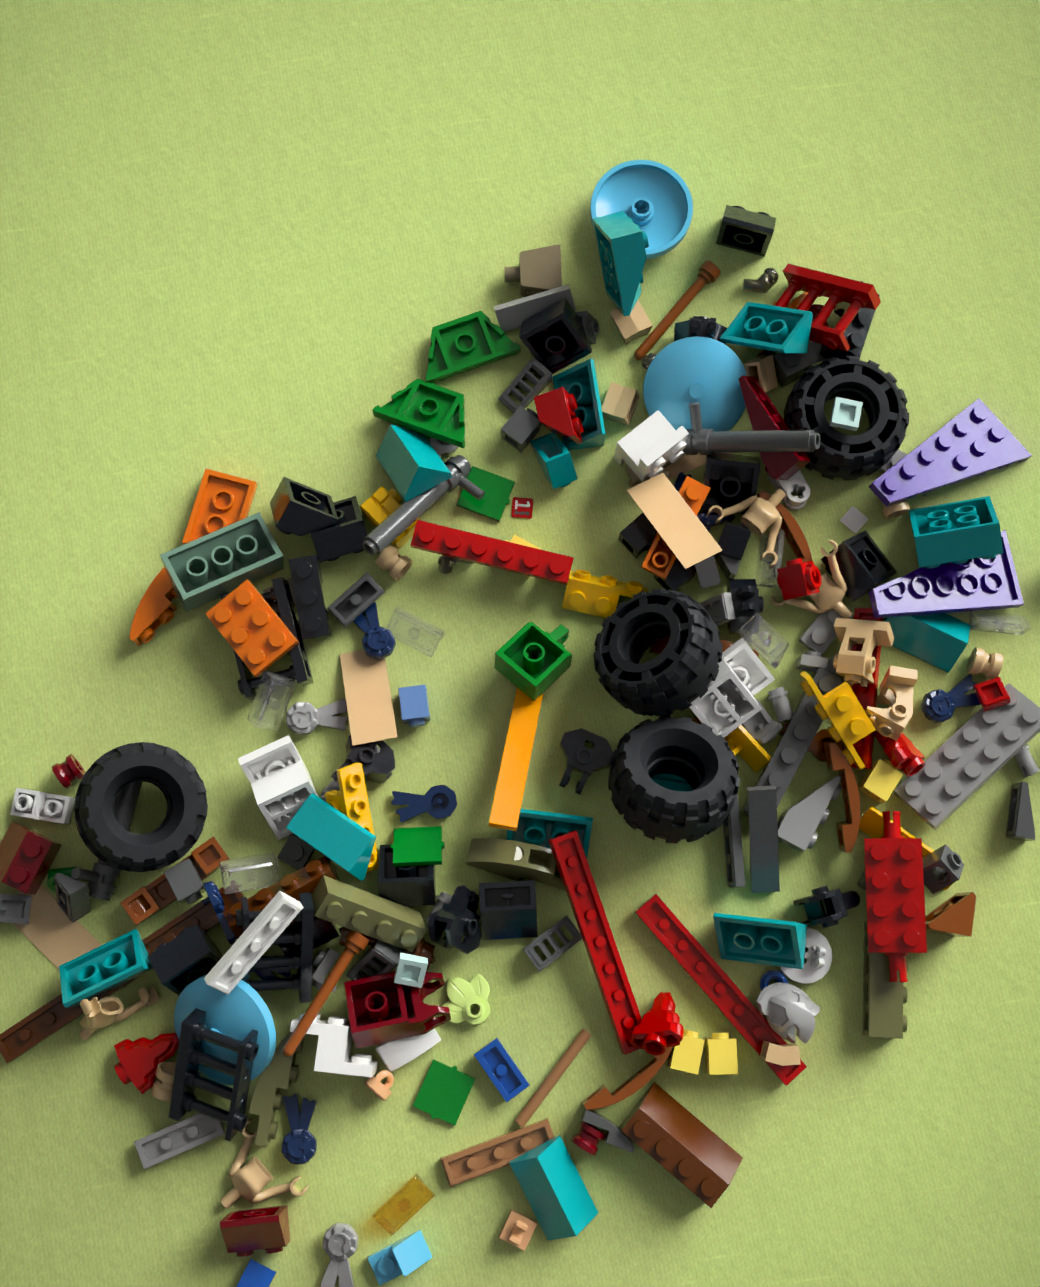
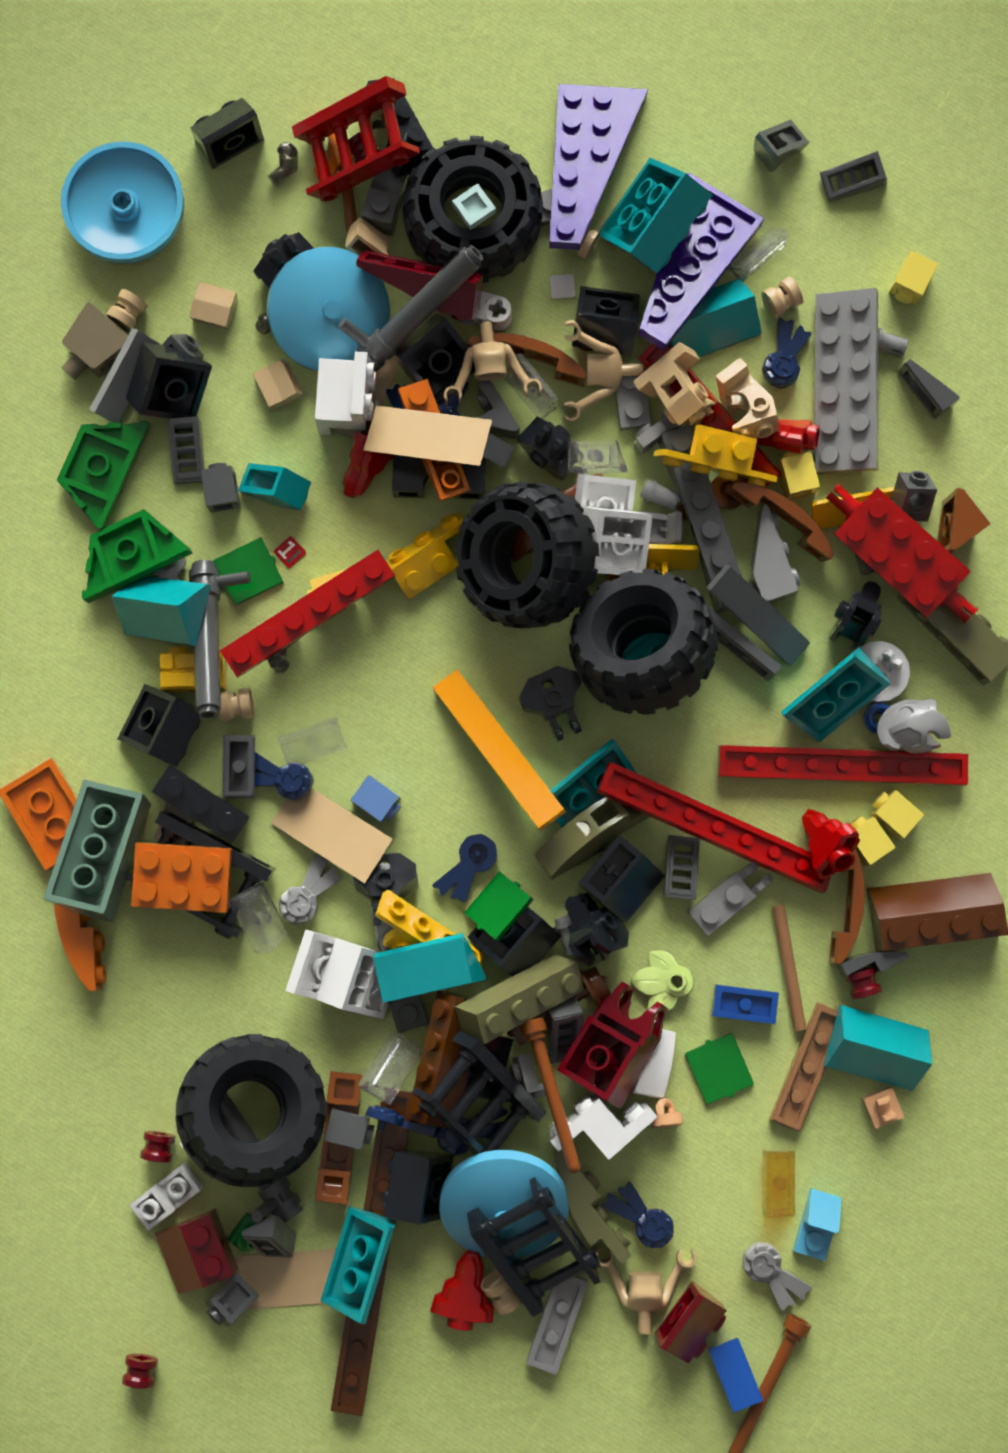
camera: 50 degrees left, 5 degrees up
(110, 1010) = (397, 1288): tan piece -> none
(253, 943) = (460, 1115): white tile -> none
(301, 508) = (114, 740): black slope -> none
(411, 970) = (599, 1004): light aqua plate -> none
(534, 658) = (432, 663): green hinge -> none
(558, 414) = (238, 445): red slope -> none
(559, 993) = (726, 900): none -> light grey hinge
(577, 272) = (126, 309): none -> tan wheel
(583, 384) = (248, 420): teal slope -> none
(617, 501) = (362, 466): none -> red rock
(621, 258) = (155, 261): teal slope -> none
(707, 273) = (234, 202): dark orange piece -> none
(720, 608) = (536, 468): light grey plate -> none
(733, 541) = (490, 402): black slope -> none
(770, 328) = (337, 197): teal slope -> none
(780, 1053) = (940, 765): tan piece -> none
(798, 579) = (573, 380): red brick -> none
(991, 694) = (812, 316): red tile -> none

